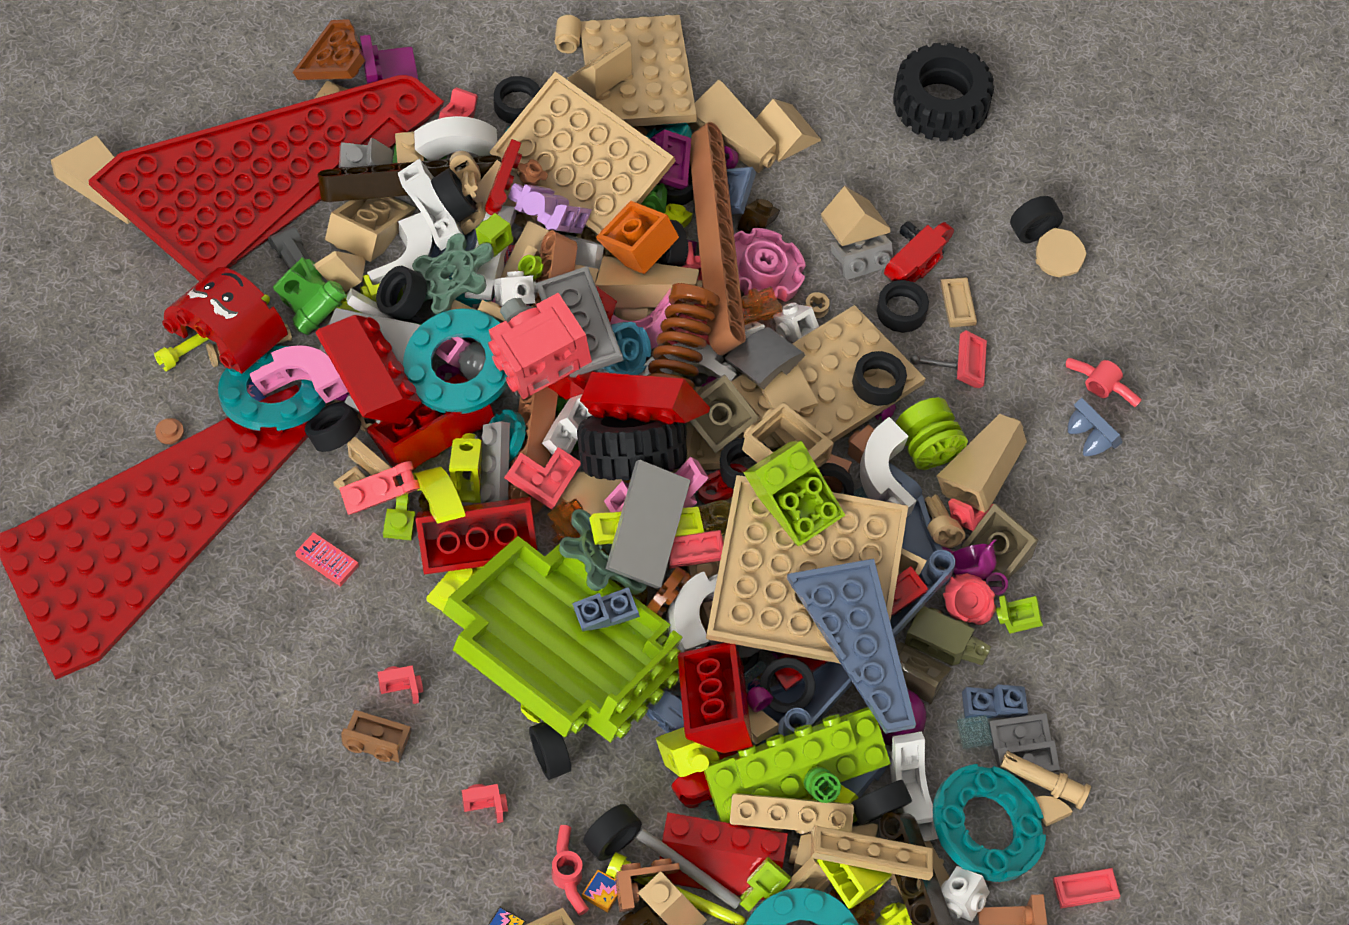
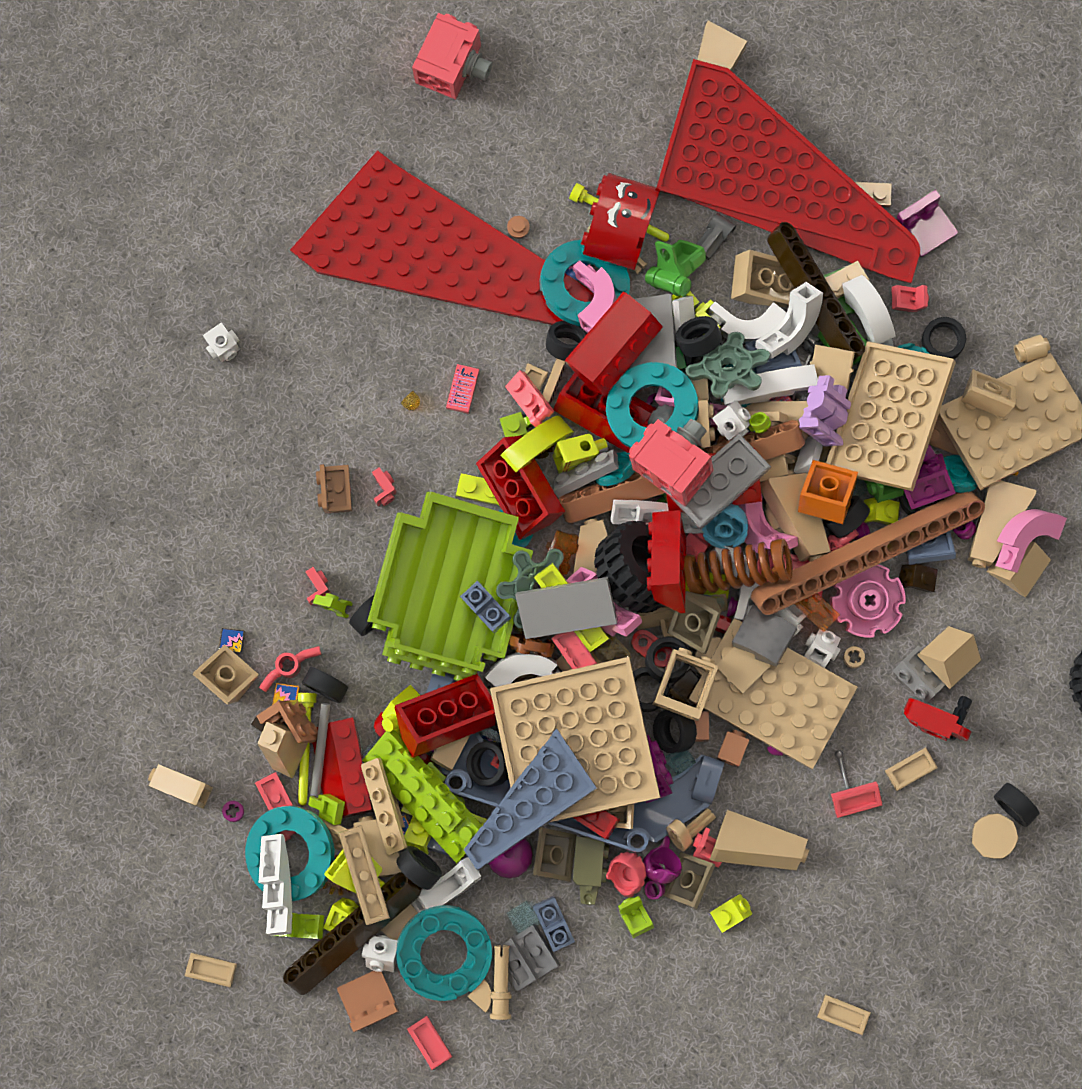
camera: 80 degrees right, 20 degrees up
(127, 792) = (222, 343): none -> white brick
(314, 615) = (411, 401): none -> clear yellow hinge
(333, 54) = (915, 176): dark orange plate -> none
(342, 268) = (706, 285): tan slope -> none
(364, 155) = (823, 250): light grey slope -> none
(449, 191) = (799, 323): black tyre -> none
(470, 175) = (831, 334): tan piece -> none
(474, 219) = (797, 356): tan tile -> none
(496, 232) = (775, 381): lime plate -> none
(503, 178) = (833, 365): red plate -> none
(517, 786) = (332, 603): none -> lime plate
(531, 172) = (848, 384): nougat plate -> none
(546, 482) = (581, 519): coral plate -> none
(758, 698) = (464, 746): magenta hinge -> none
(761, 109) = (1022, 530): none -> bright pink arch
(795, 492) = (627, 706): lime slope -> none
(817, 780) = (411, 819): bright green wheel -> none
(875, 474) = (711, 756): white arch -> none
(882, 361) = (797, 718): black tyre -> none
(898, 322) = (887, 708): black tyre -> none
(932, 433) = (762, 792): lime wheel -> none
(1050, 521) = (731, 912): none -> neon yellow bracket
(1103, 434) = (832, 929): sand blue tile -> none
(1104, 379) = (885, 913): coral piece -> none
(1198, 461) = (843, 1015): none -> tan tile

